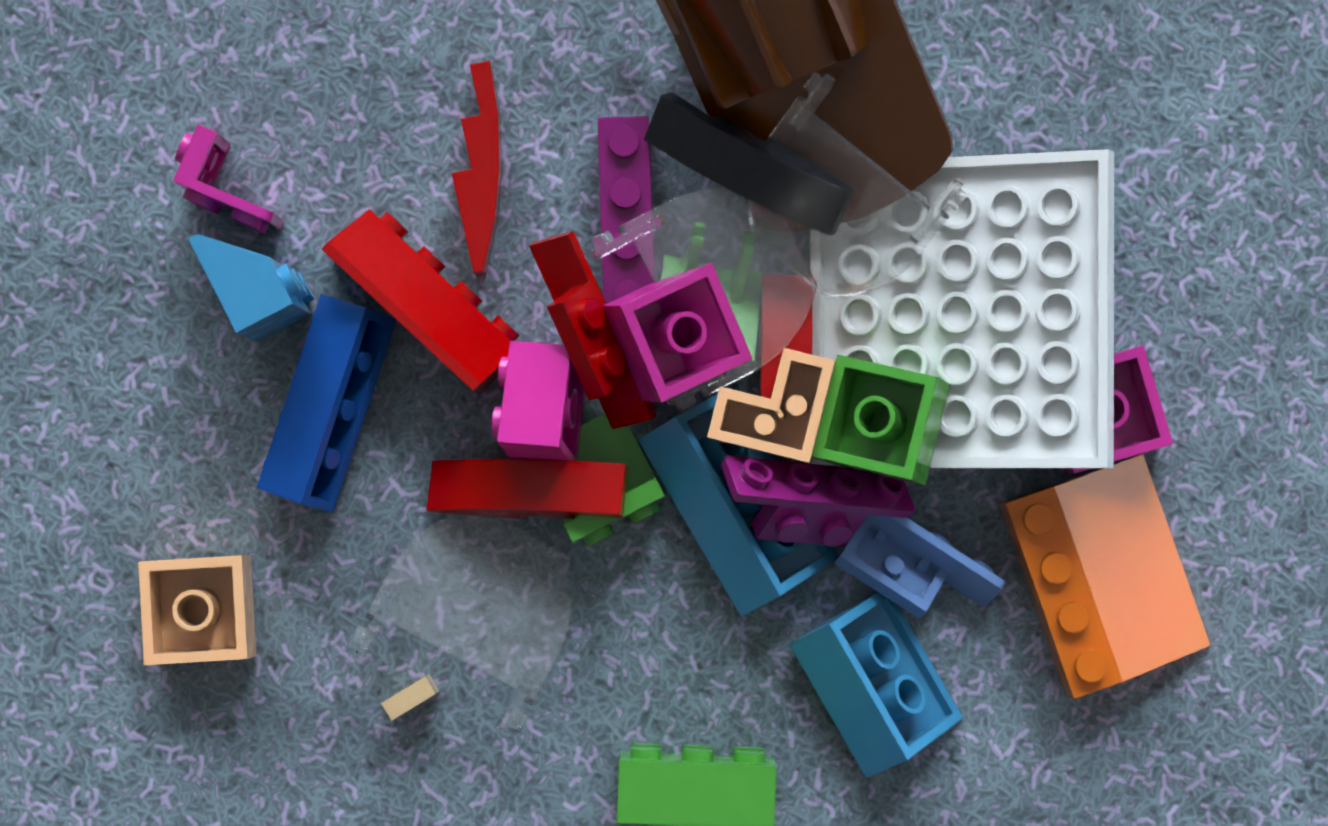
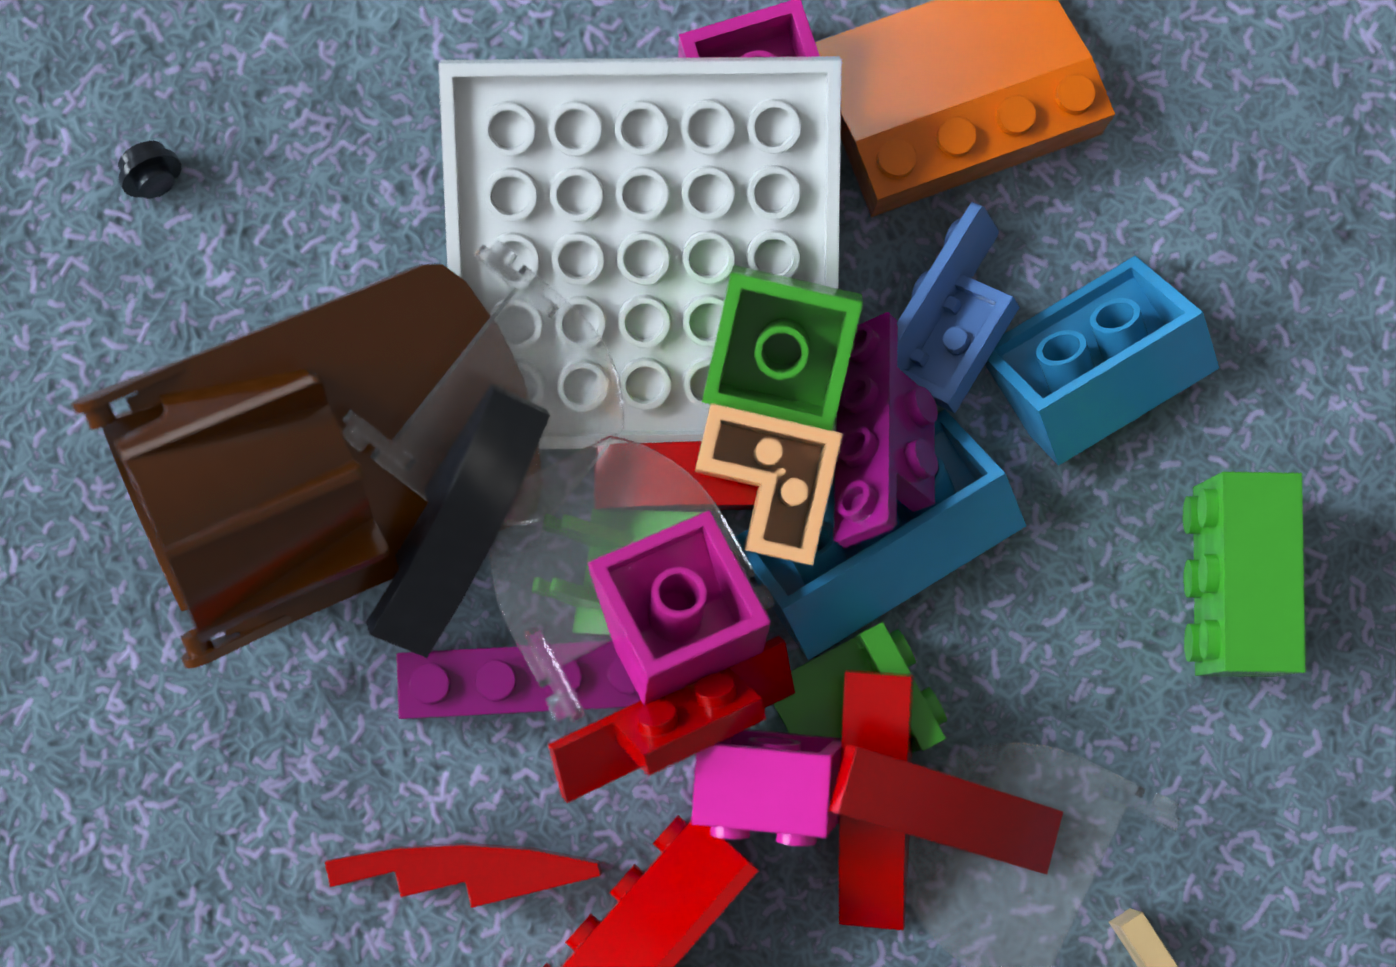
camera: 100 degrees left, 5 degrees down
(516, 540) = (945, 809): none -> red slope

